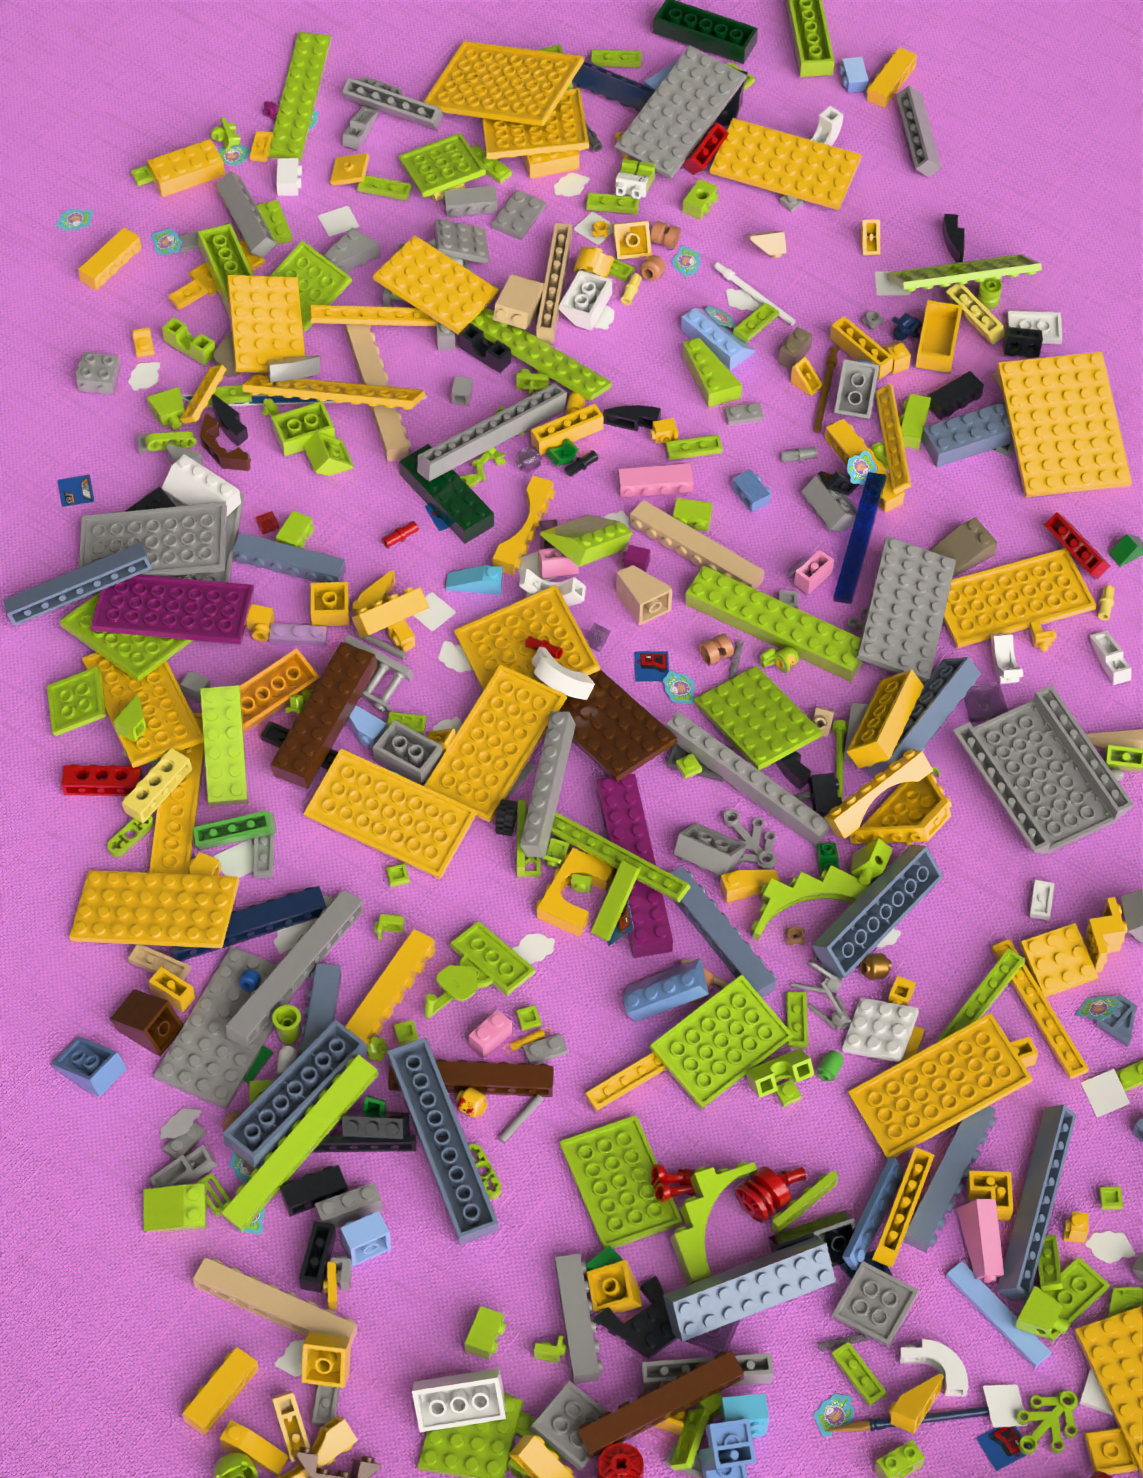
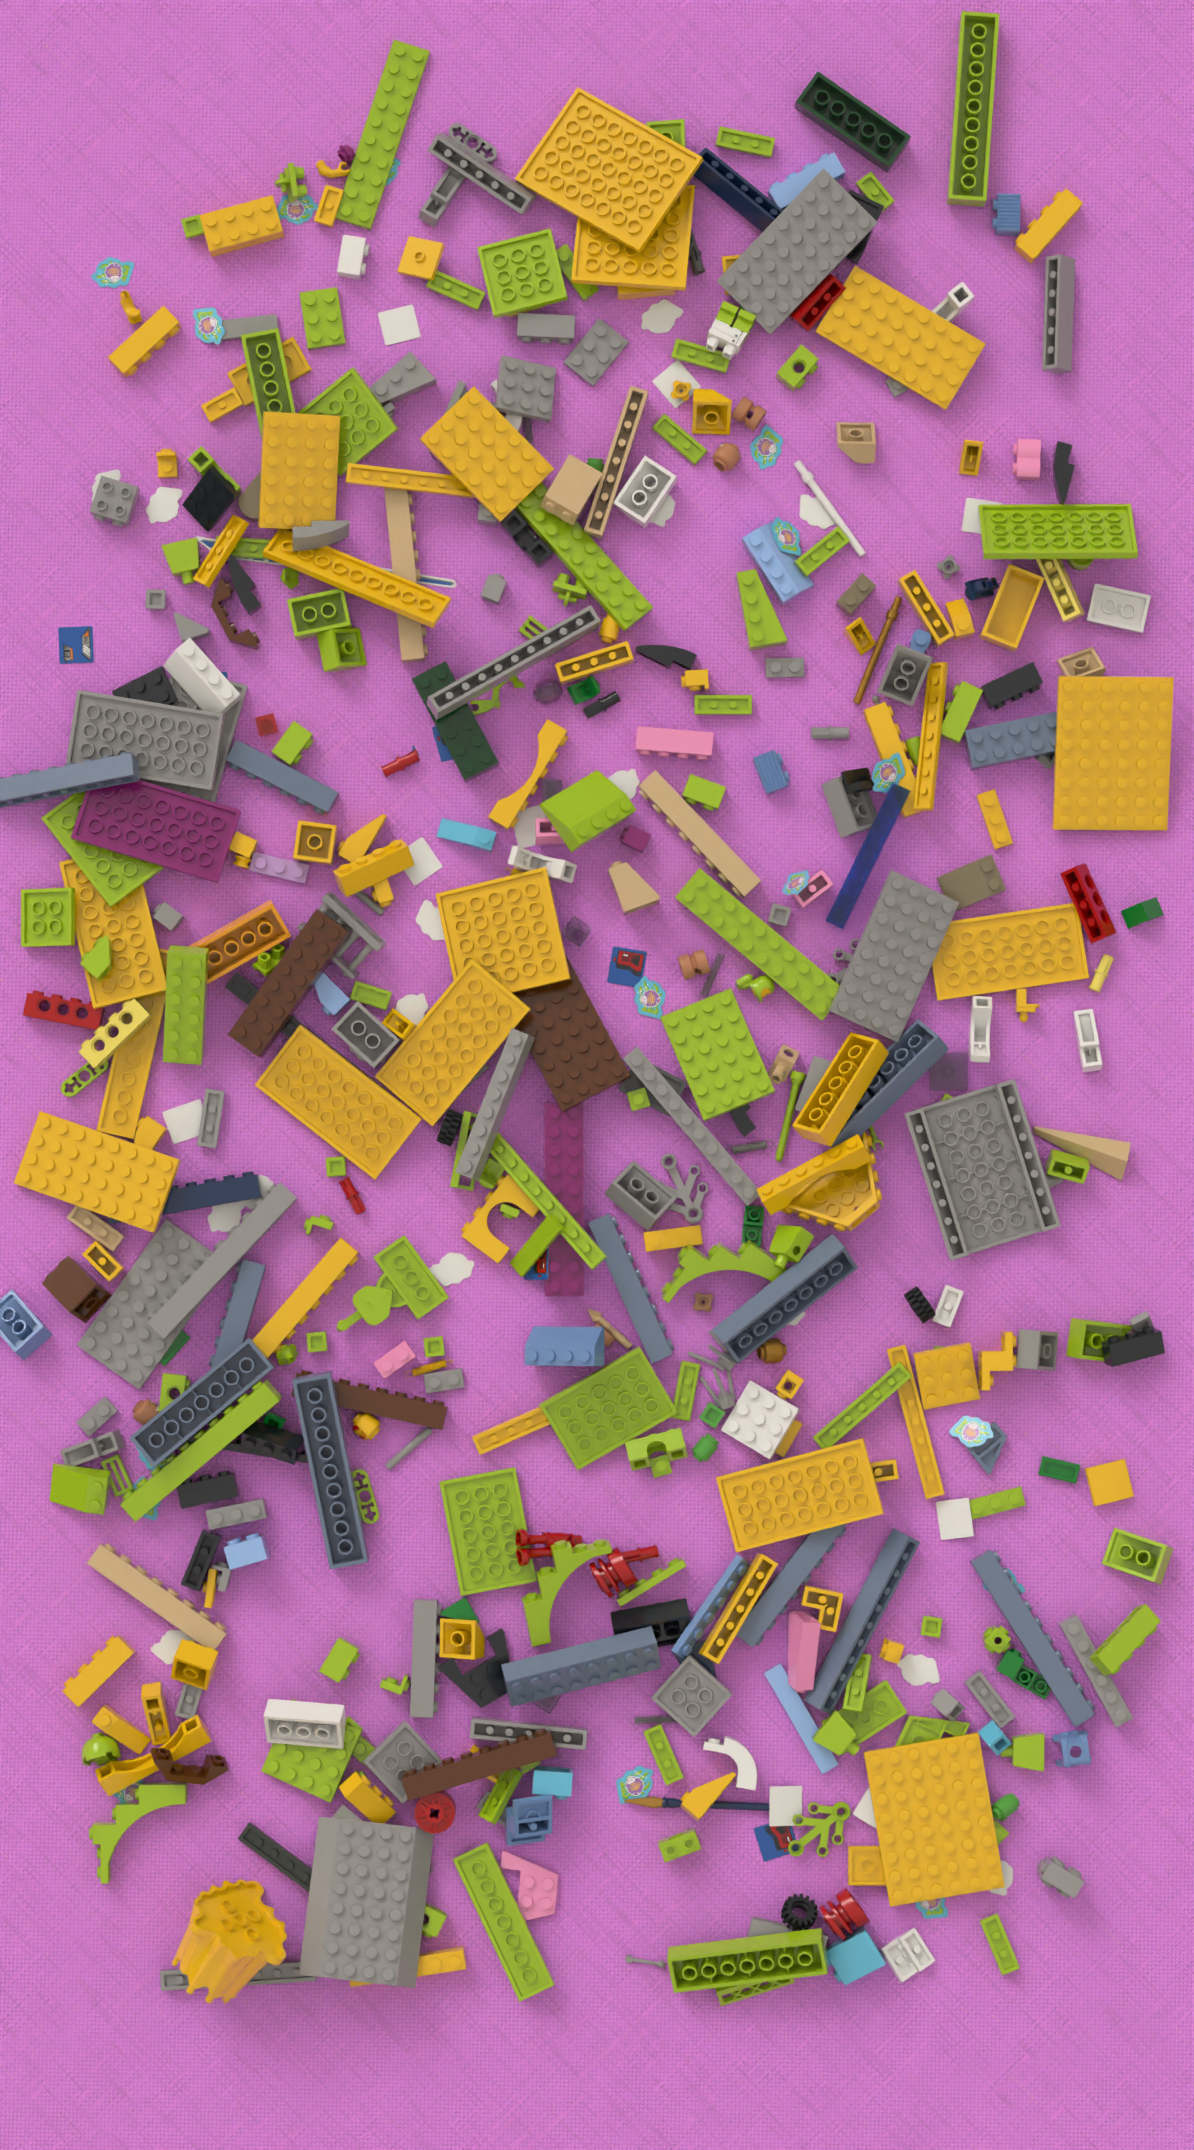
camera: 10 degrees right, 30 degrees up
(92, 239) = (130, 310): none -> yellow piece
(159, 441) = (178, 606): lime beam -> none
(179, 1123) = (94, 1399): white sticker -> none
(187, 355) = (210, 499): none -> black plate
(234, 830) = (184, 1099): bright green brick -> none
(246, 214) = (298, 308): light grey brick -> none
(249, 980) = (177, 1265): blue piece -> none
(267, 123) = (325, 170): none -> yellow piece
(286, 1057) = (201, 1351): white cone -> none
(287, 1021) = (199, 1327): lime plant -> none
(419, 896) = (352, 1196): none -> red axle
(534, 644) = (518, 945): red pin -> none
(560, 678) = (527, 989): white arch -> none
(593, 261) = (661, 448): yellow brick -> none
(631, 289) = (698, 479): light yellow axle -> none
(824, 793) = (764, 1156): black brick -> none
(829, 1035) = (712, 1415): none -> bright green plate
(921, 234) = (1027, 459): none -> bright pink brick
(969, 498) = (994, 819): none -> yellow plate
(1014, 898) = (919, 1304): none -> black tyre
(1023, 338) = (1099, 631): black brick -> none

